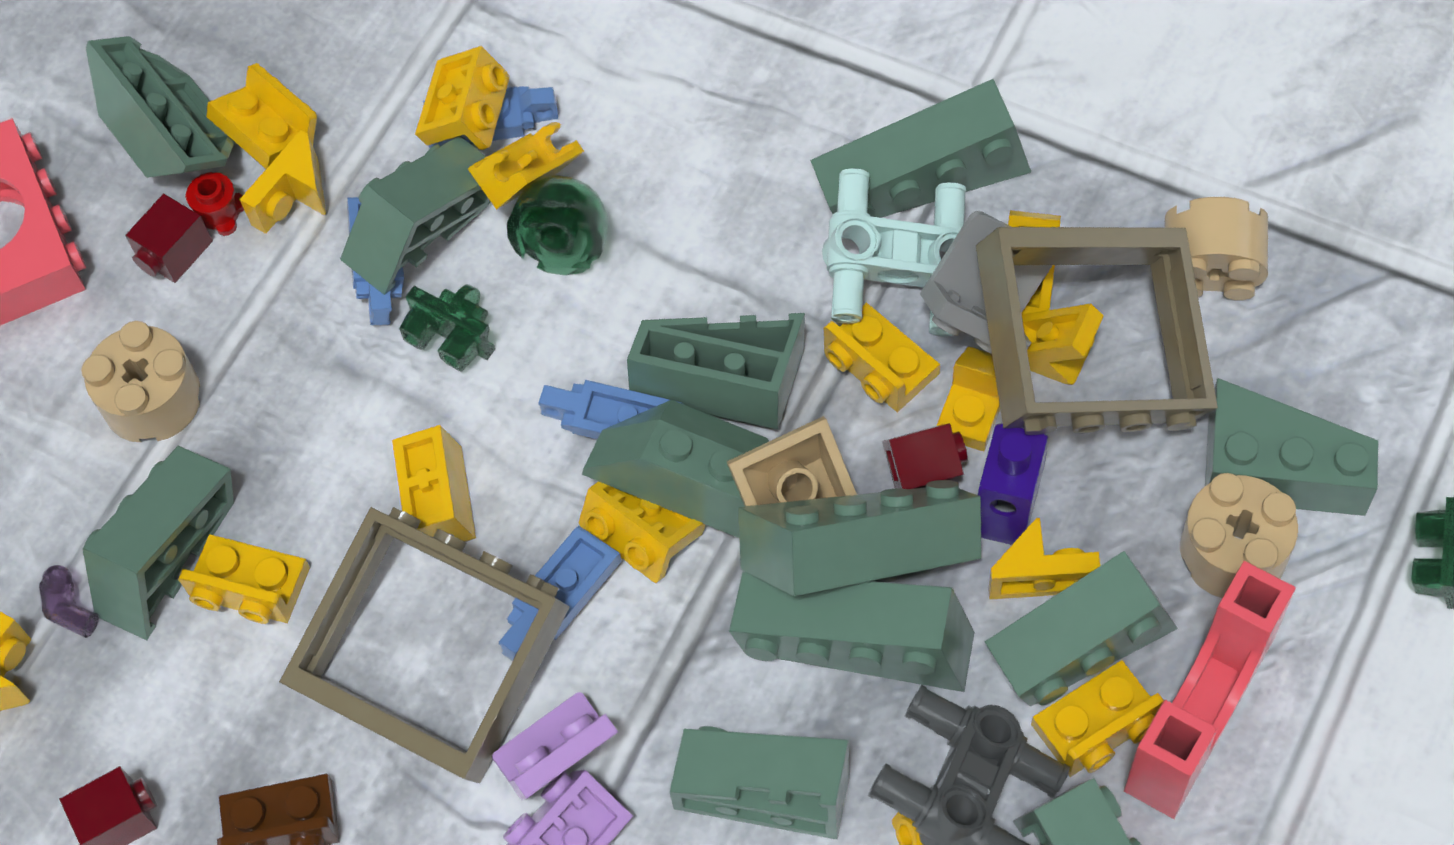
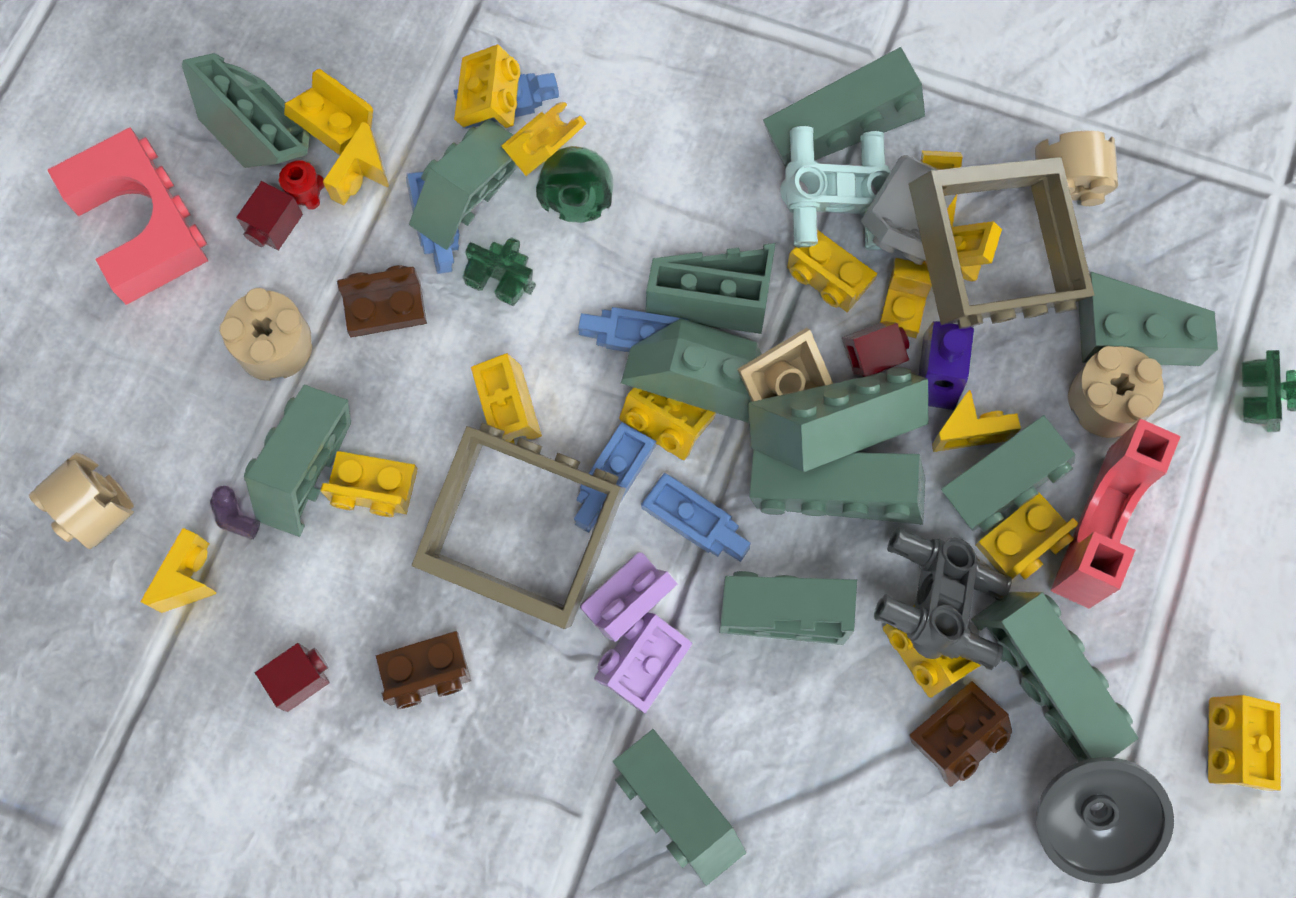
camera: 10 degrees left, 10 degrees up
(295, 352) = (382, 301): none -> reddish brown bracket
(658, 656) = (695, 518): none -> medium blue hinge

